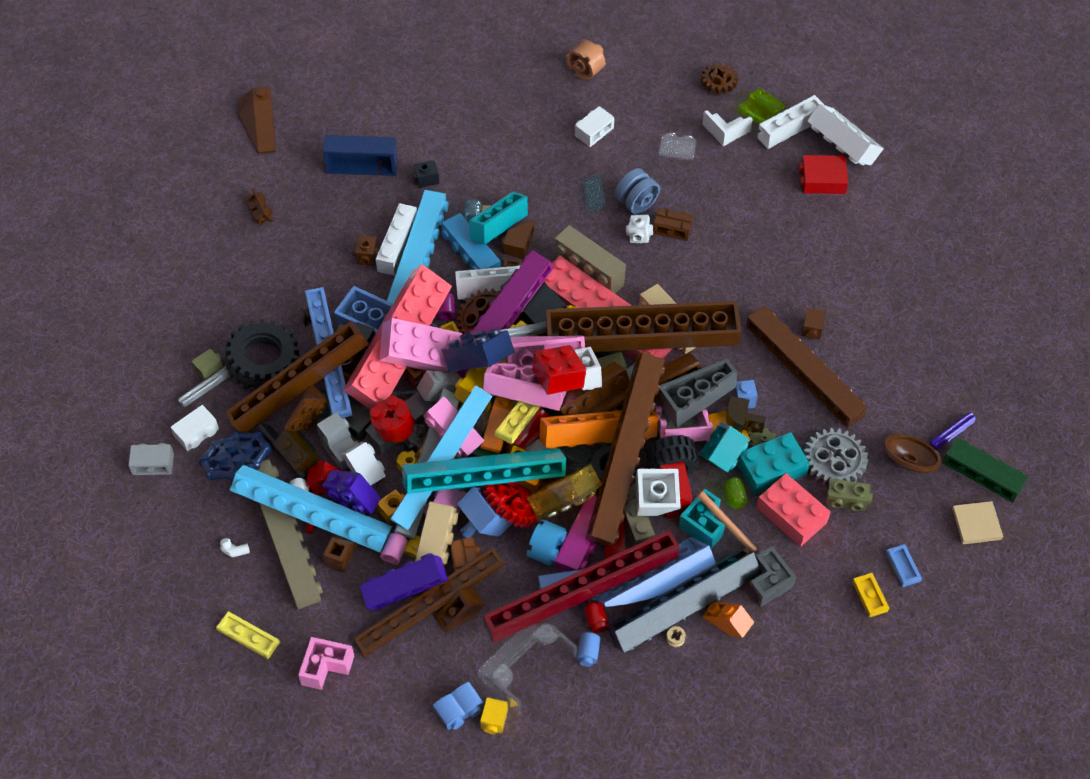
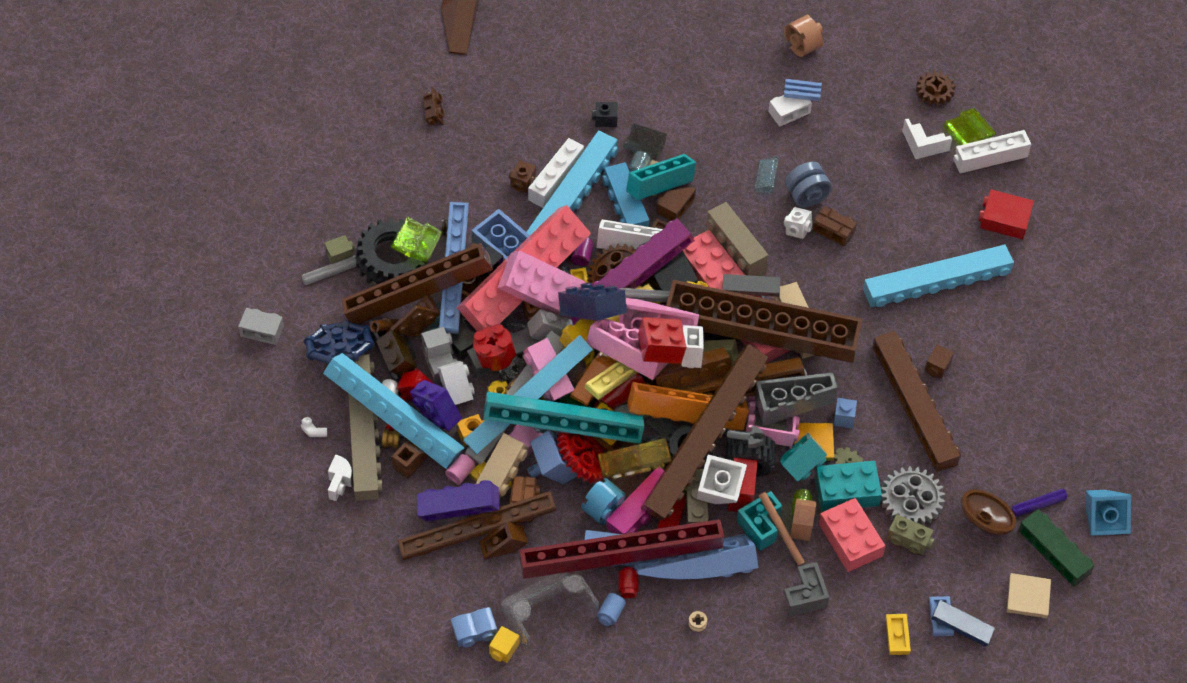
camera: 15 degrees right, 0 degrees up
(195, 428) = (309, 307): white piece -> none
(248, 635) = (303, 511): light yellow tile -> none
(275, 426) = (382, 325): none -> reddish brown axle
(276, 588) = (340, 475): none -> white brick
(282, 335) = (416, 240): none -> clear neon green slope
(315, 537) = (390, 439): none -> pearl gold wheel
(324, 657) = (364, 549): bright pink brick -> none
(360, 155) = (546, 79): dark blue piece -> none
(471, 188) = (645, 140): none -> clear smoke bracket
(602, 107) = (802, 87): none -> medium blue tile
(619, 296) = (752, 285): none -> dark grey tile
(670, 441) = (752, 443): none -> dark grey bar
(677, 147) = (867, 149): clear bracket -> none
(684, 600) = (716, 589): brick -> none
(729, 618) = (753, 618): orange slope -> none
(739, 418) = (830, 434): dark brown brick -> none
(744, 507) = (803, 519): none -> nougat slope
(783, 246) = (938, 276): none -> medium azure brick
(845, 135) = (1041, 179): white brick -> none
(927, 566) = (962, 623): none -> tile
(1019, 423) = (1108, 512): none -> dark azure slope

